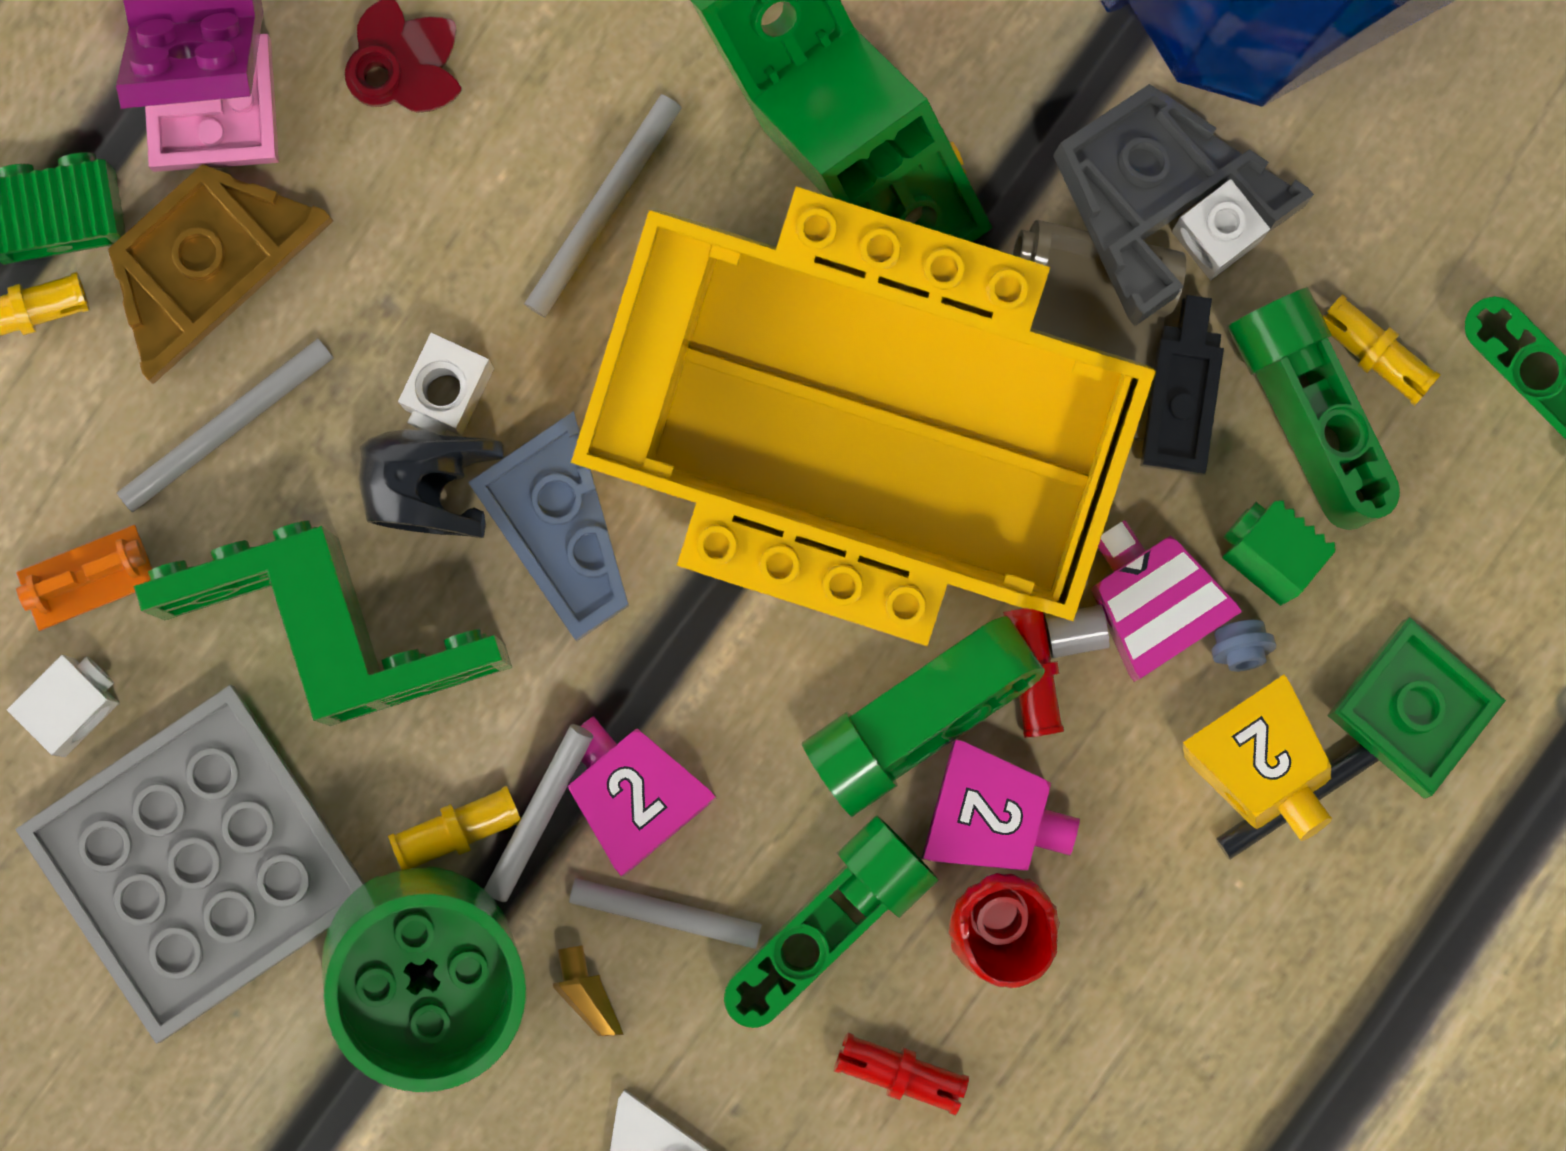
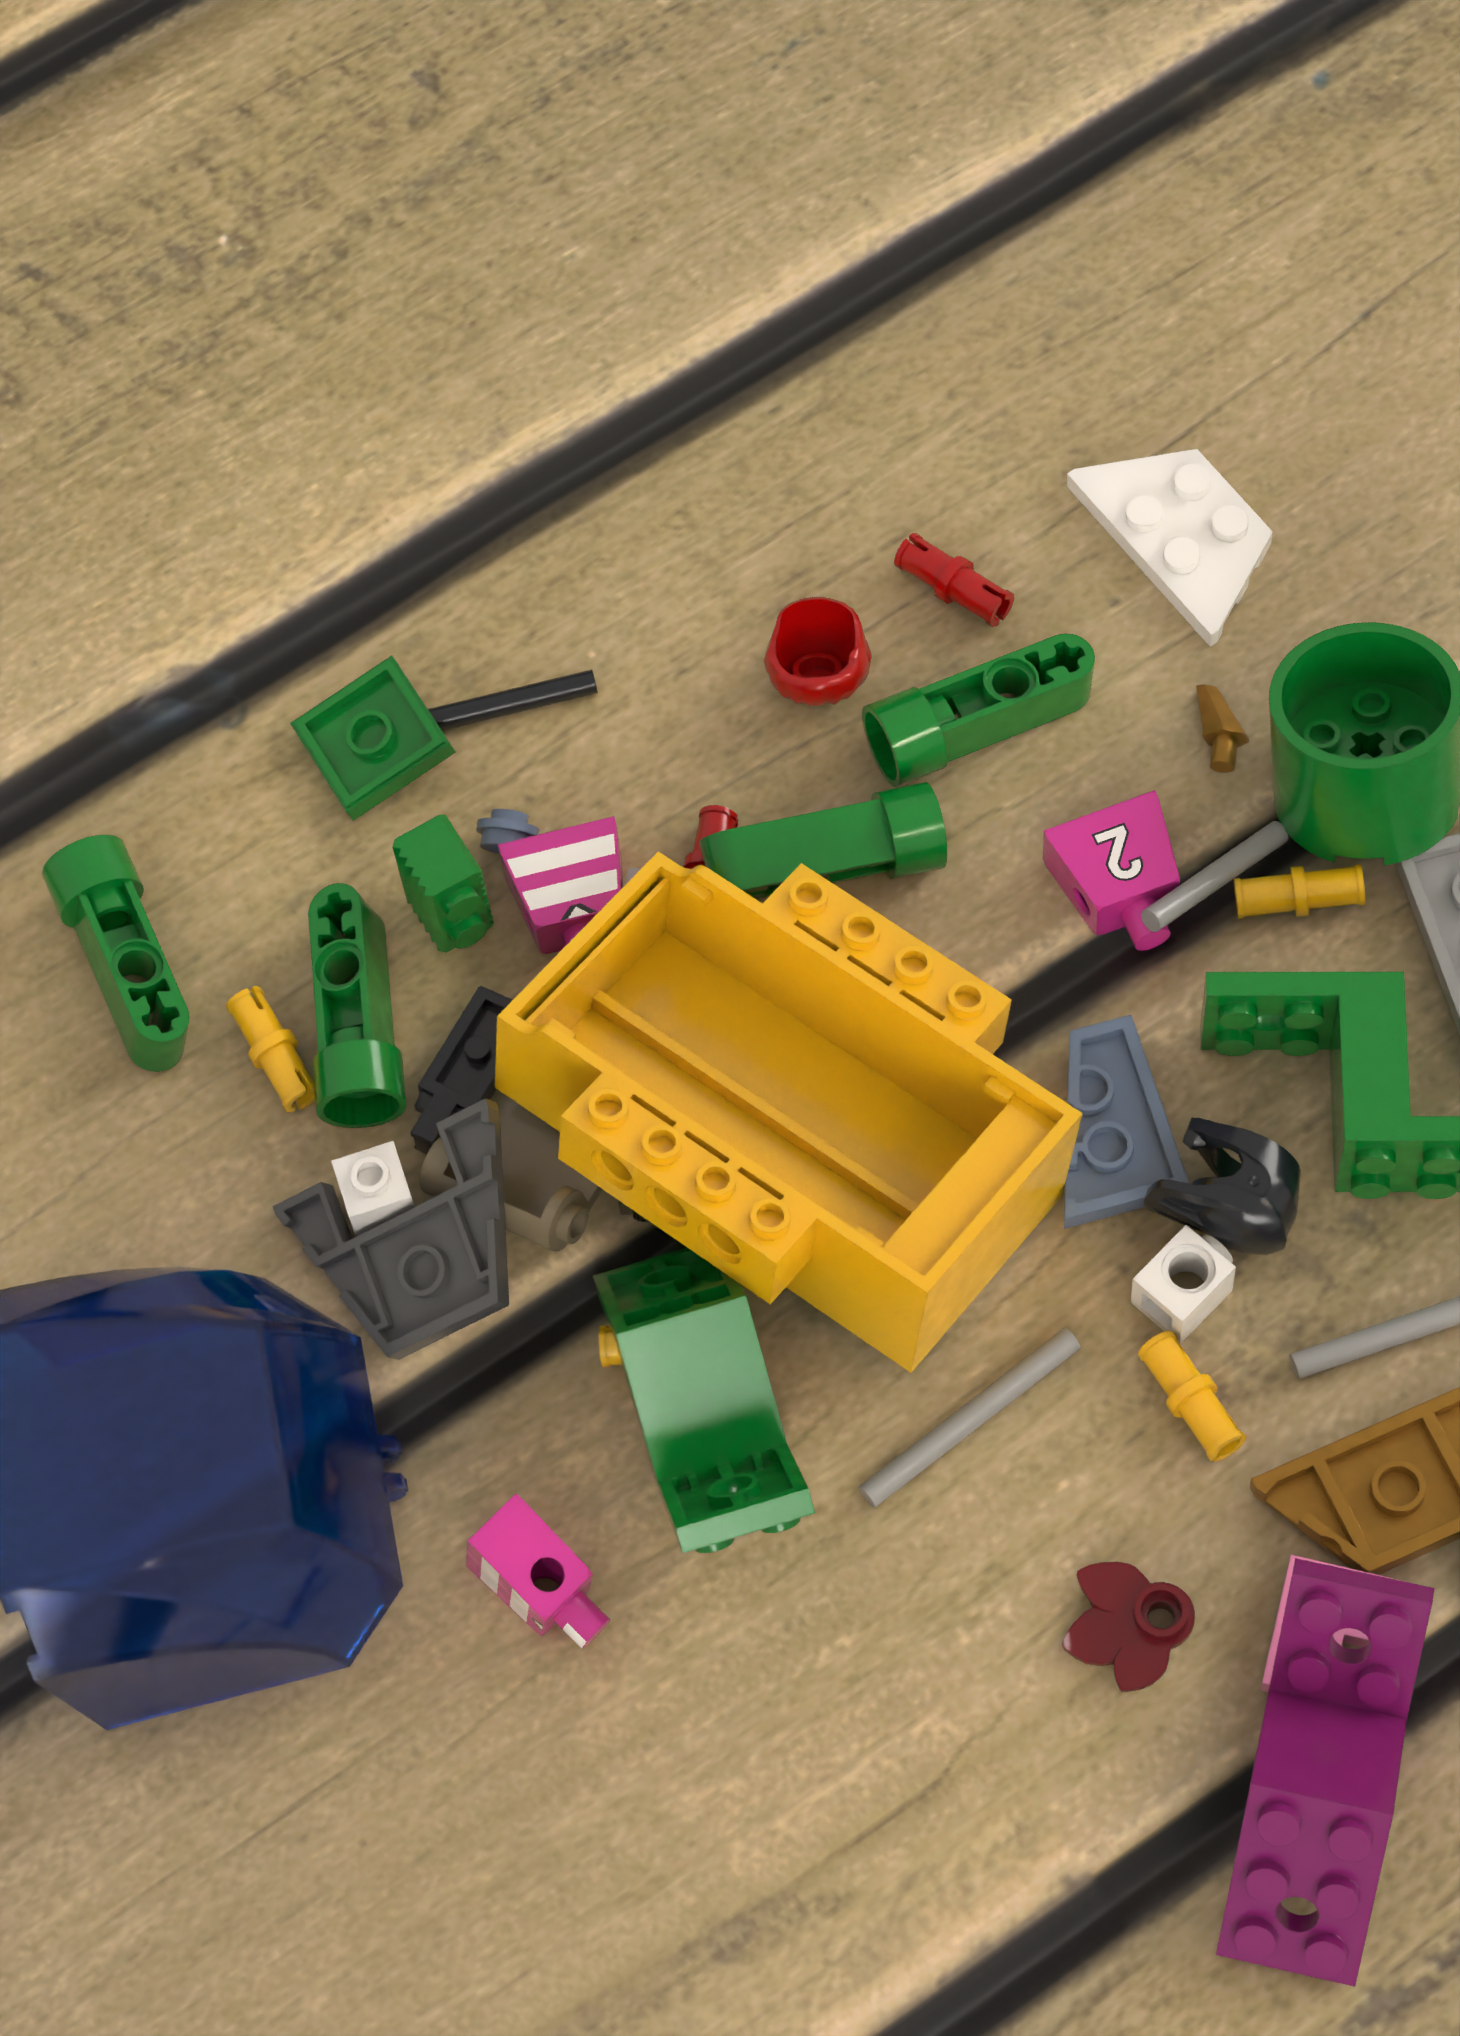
camera: 155 degrees left, 20 degrees down
(407, 283) = (1192, 1396): none -> yellow pin
(665, 913) = (1123, 771): light grey bar -> none
(993, 814) = (793, 754): dark pink torso -> none
(1265, 760) = (527, 726): yellow torso -> none

